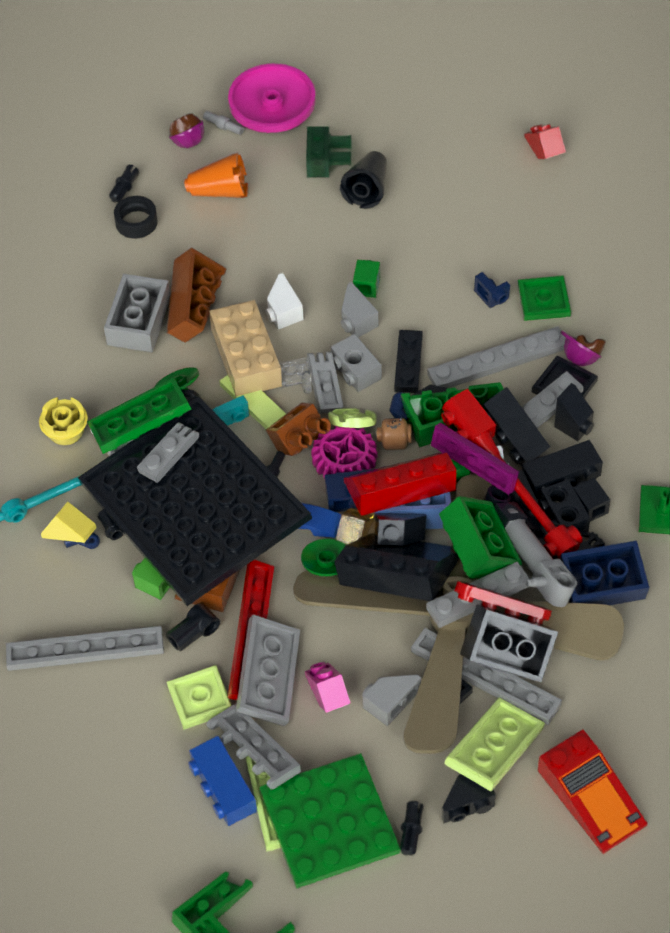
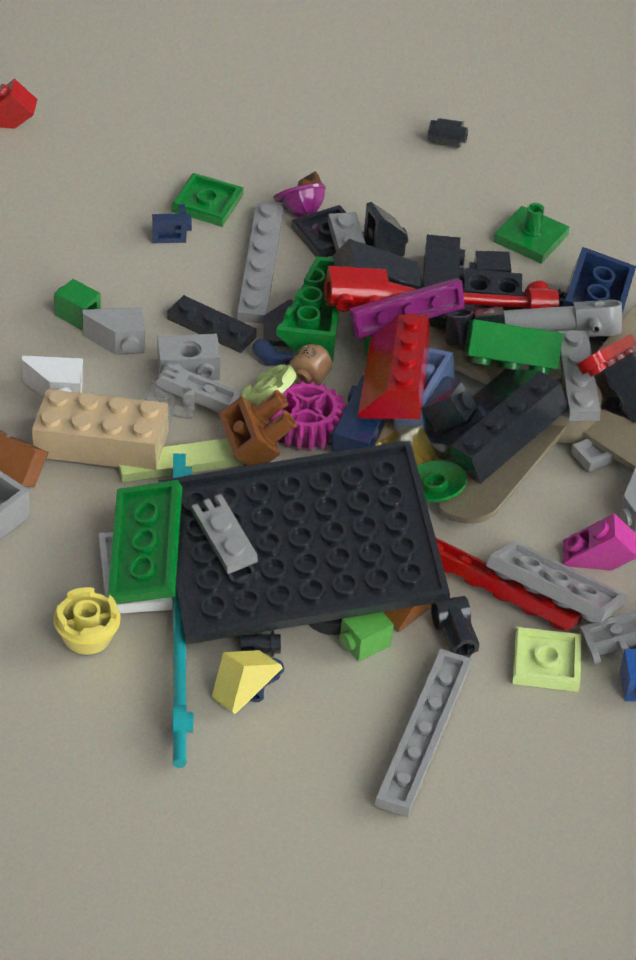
camera: 70 degrees left, 10 degrees down
(183, 377) = (96, 506): green dish -> none

